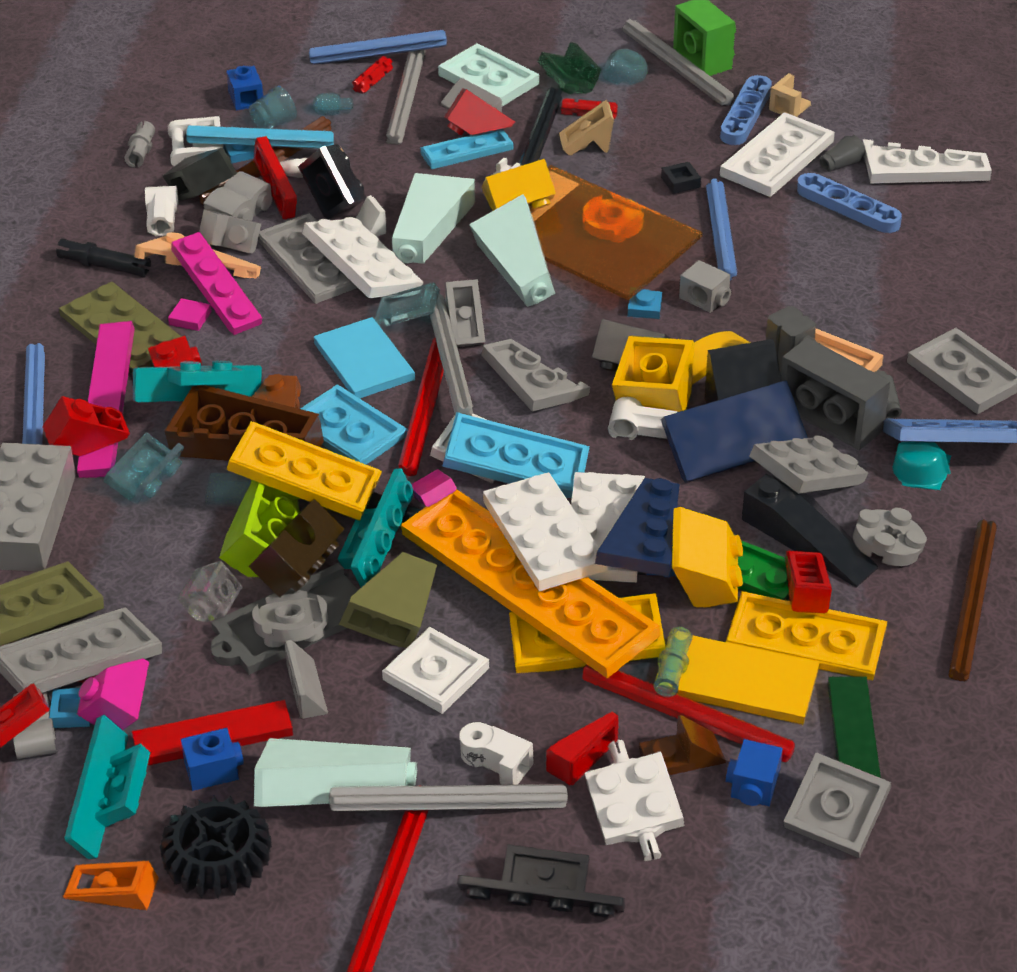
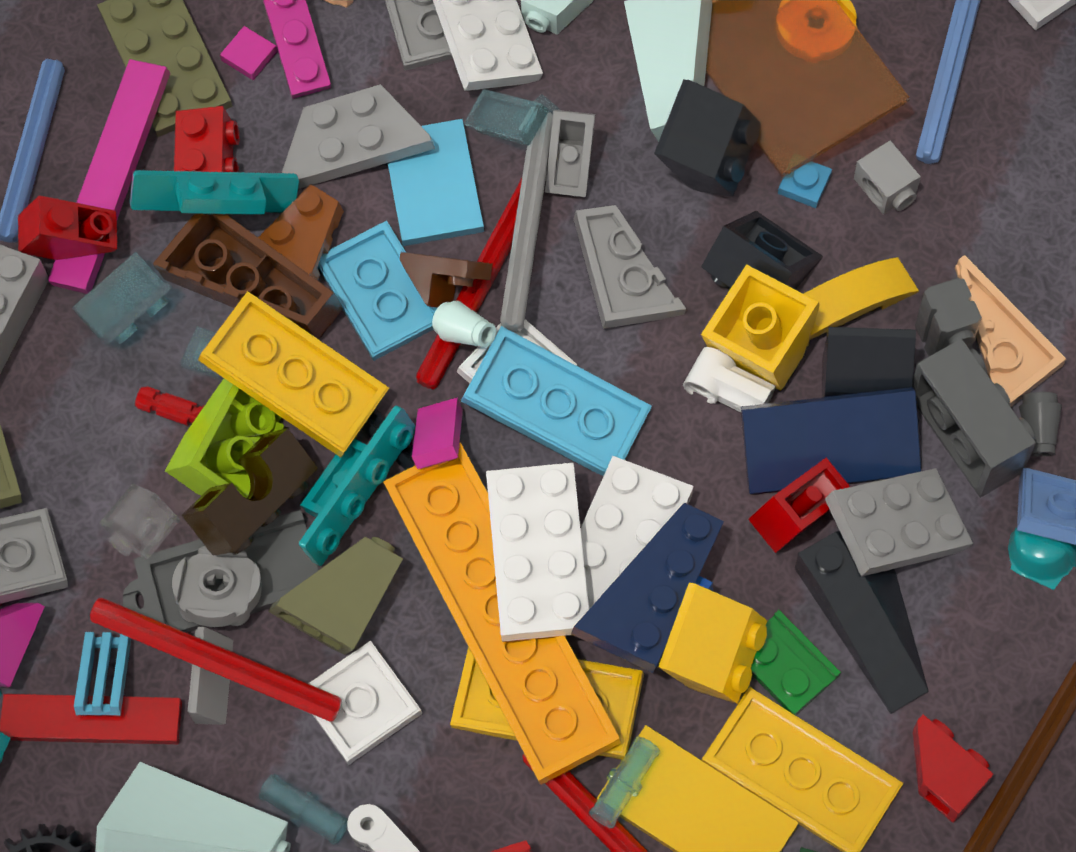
camera: 20 degrees right, 25 degrees up
(203, 525) = (167, 405): none -> red axle
(210, 683) = (105, 644): none -> medium azure tile
(211, 758) = (74, 763): blue brick -> none
(295, 339) = (352, 136): none -> light grey wing
(309, 653) = (215, 659): none -> red axle
(395, 394) = (437, 276): none -> reddish brown slope
(421, 745) = (304, 808): none -> clear light blue pin
(425, 419) = (462, 325): none -> light aqua cone
(567, 282) = (707, 139): none -> black slope
(727, 475) = (797, 505): none -> red slope
(808, 582) = (819, 726): red slope -> none
(889, 535) = (974, 637): light grey plate -> none
(915, 602) = (945, 770): none -> red slope

